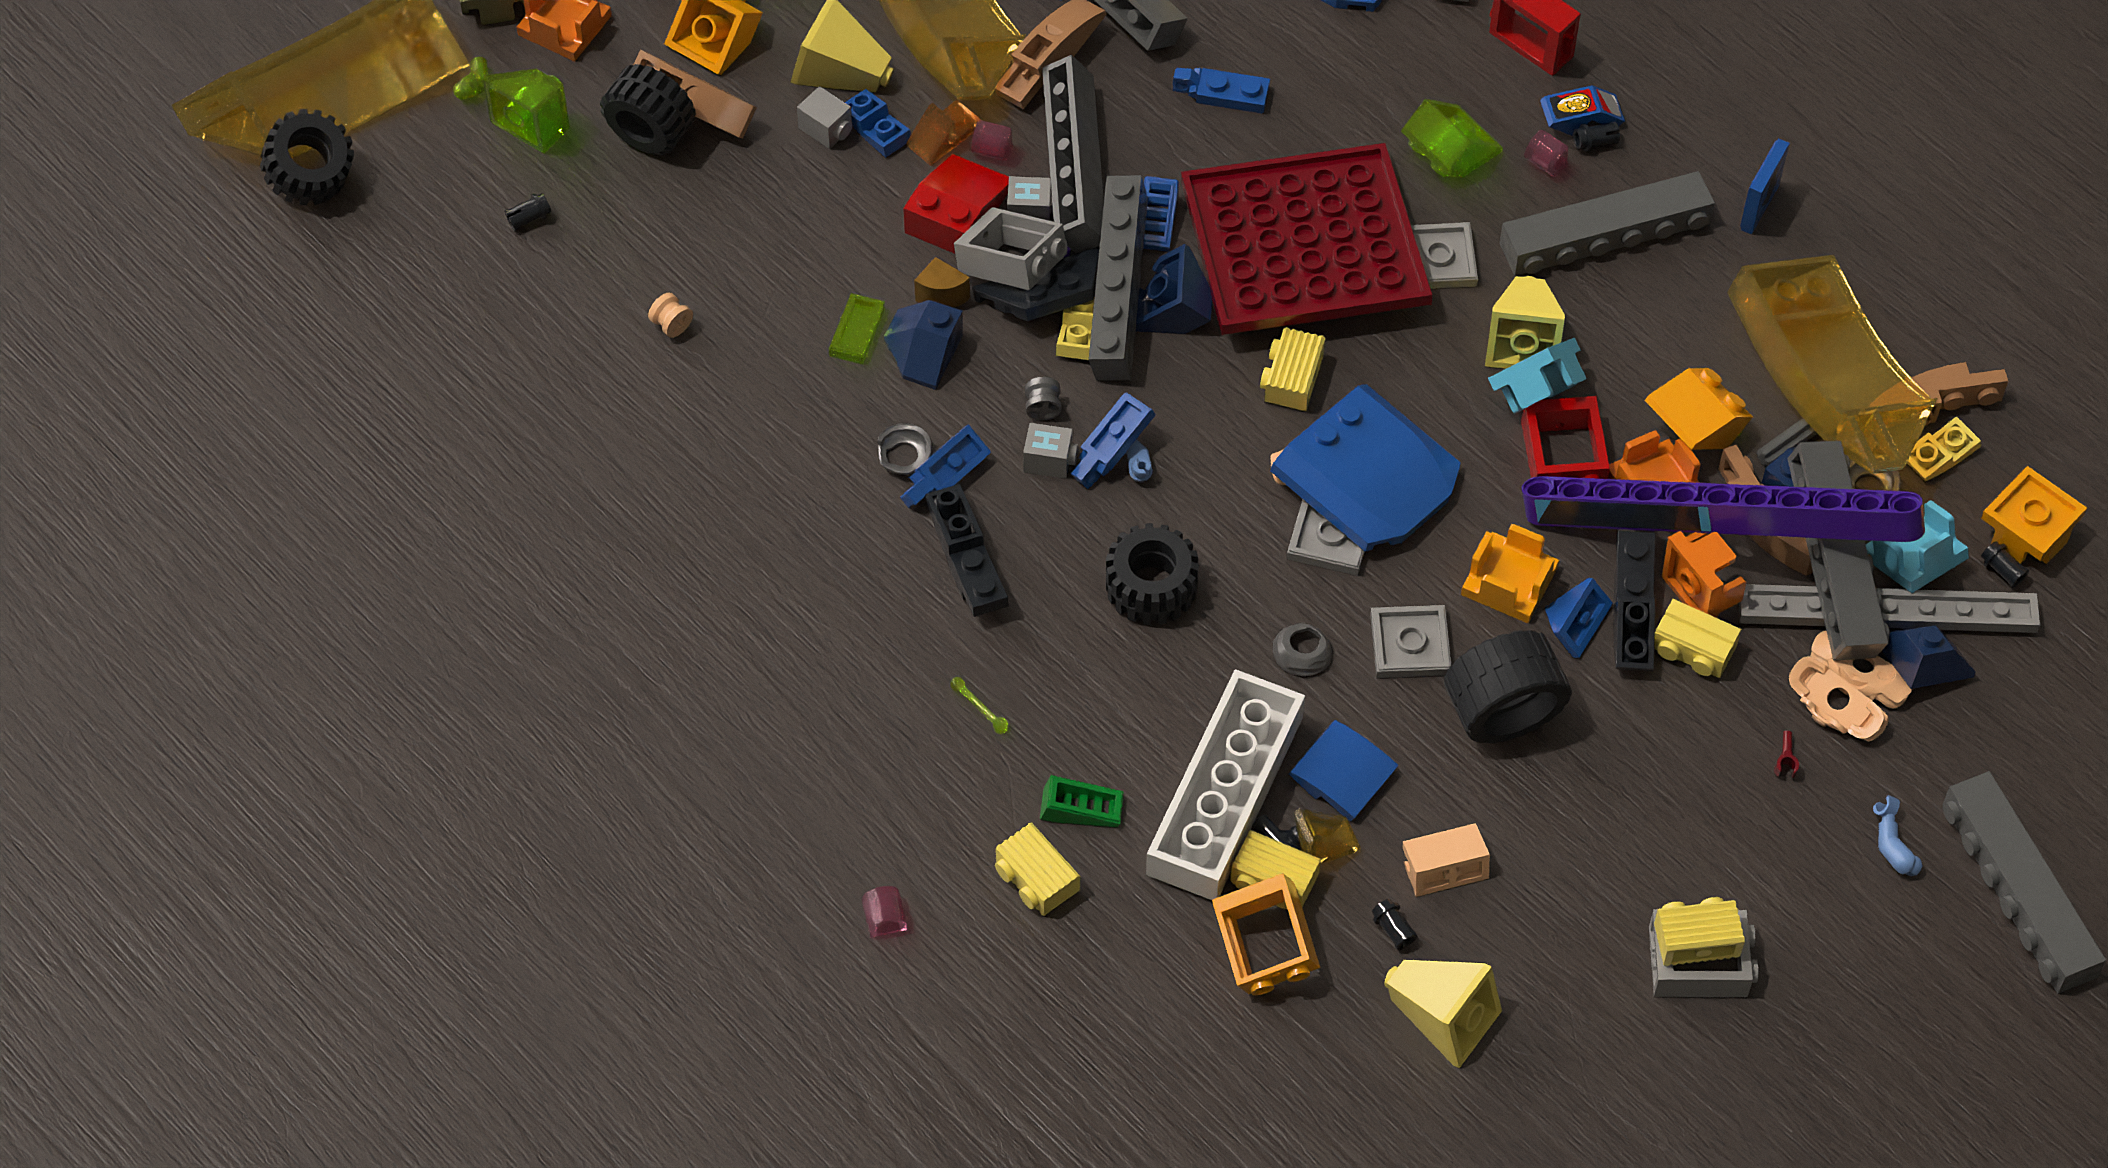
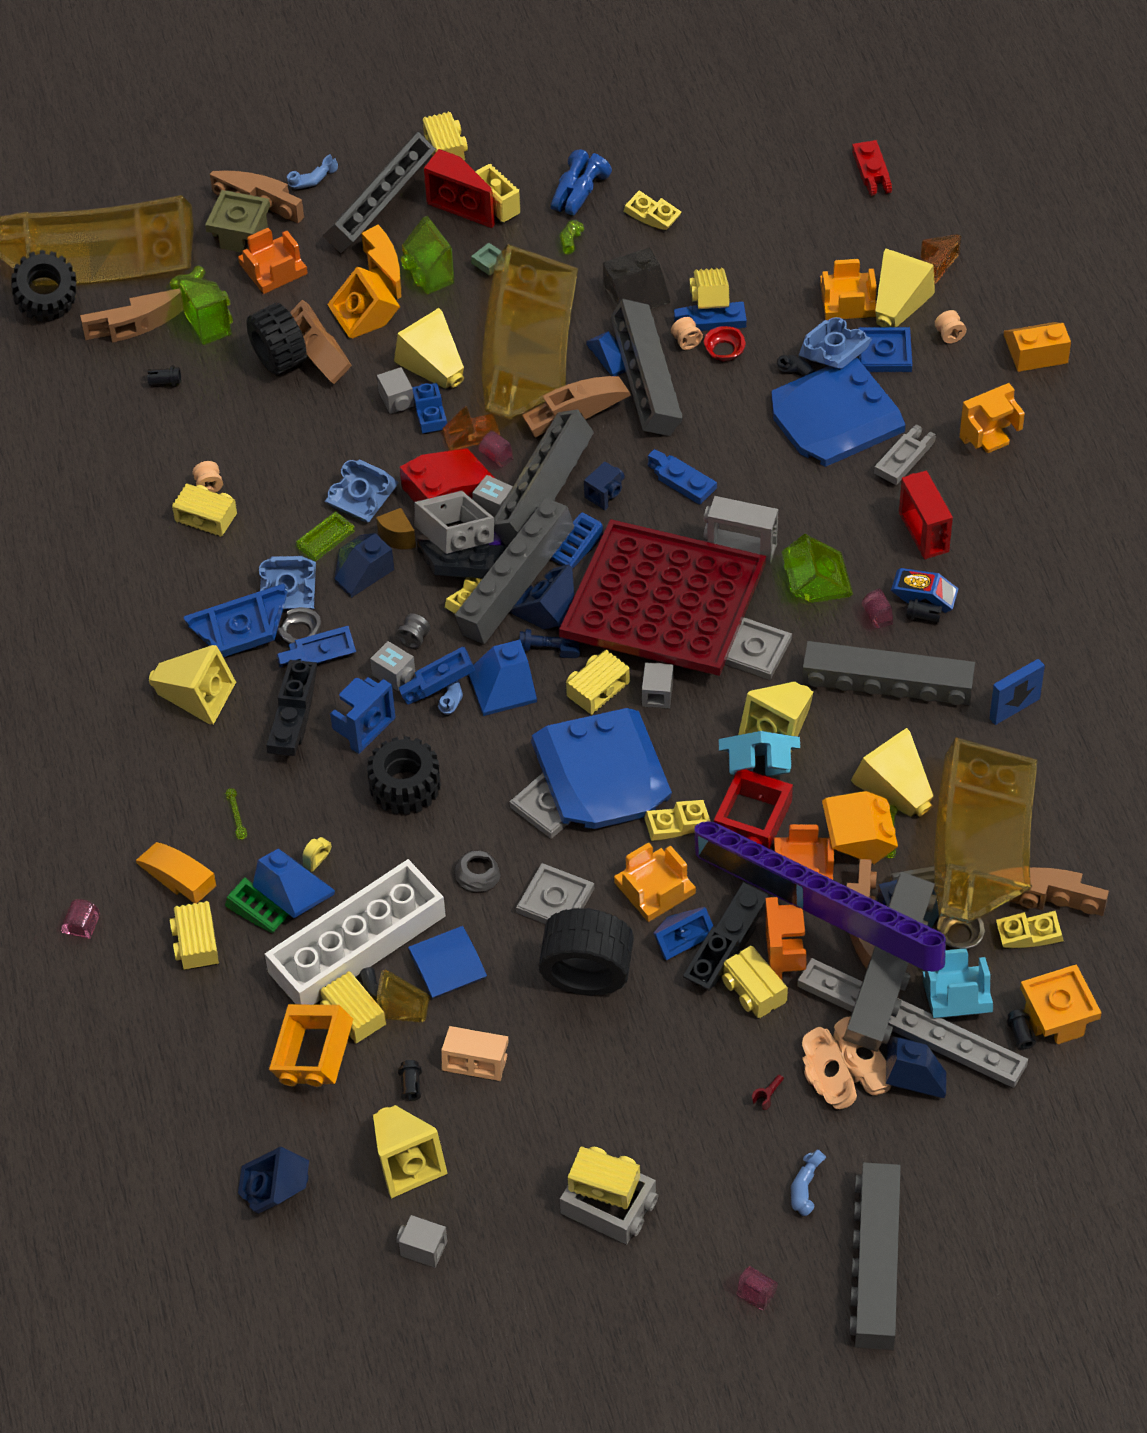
camera: 30 degrees right, 5 degrees down
(447, 149) = (130, 321): none -> medium nougat slope
(694, 355) = (204, 509): none -> light yellow brick
(828, 570) = (195, 682): none -> light yellow slope
(831, 475) = (240, 622): none -> blue wing
(854, 405) = (296, 574): none -> medium blue slope
(865, 255) = (361, 490): none -> medium blue slope
(961, 803) = (178, 871): none -> light orange slope
(1061, 513) = (370, 714): none -> blue panel
(1109, 712) = (315, 853): none -> light yellow tile
(1109, 760) = (289, 883): none -> blue slope
(1145, 134) = (603, 484): none -> dark blue brick
(1186, 411) = (503, 679): none -> blue slope
(1228, 344) = (567, 647): none -> dark blue hinge
(1322, 1112) = (272, 1178): none -> dark blue slope
(1340, 106) = (745, 516): none -> light grey window
(1364, 345) = (657, 685): none -> light grey brick
(1487, 493) = (676, 821): none -> light yellow slope
(1533, 1099) = (422, 1241): none -> light grey brick
(1697, 335) = (896, 775): none -> light yellow slope
(1921, 978) = (756, 1287): none -> clear pink brick

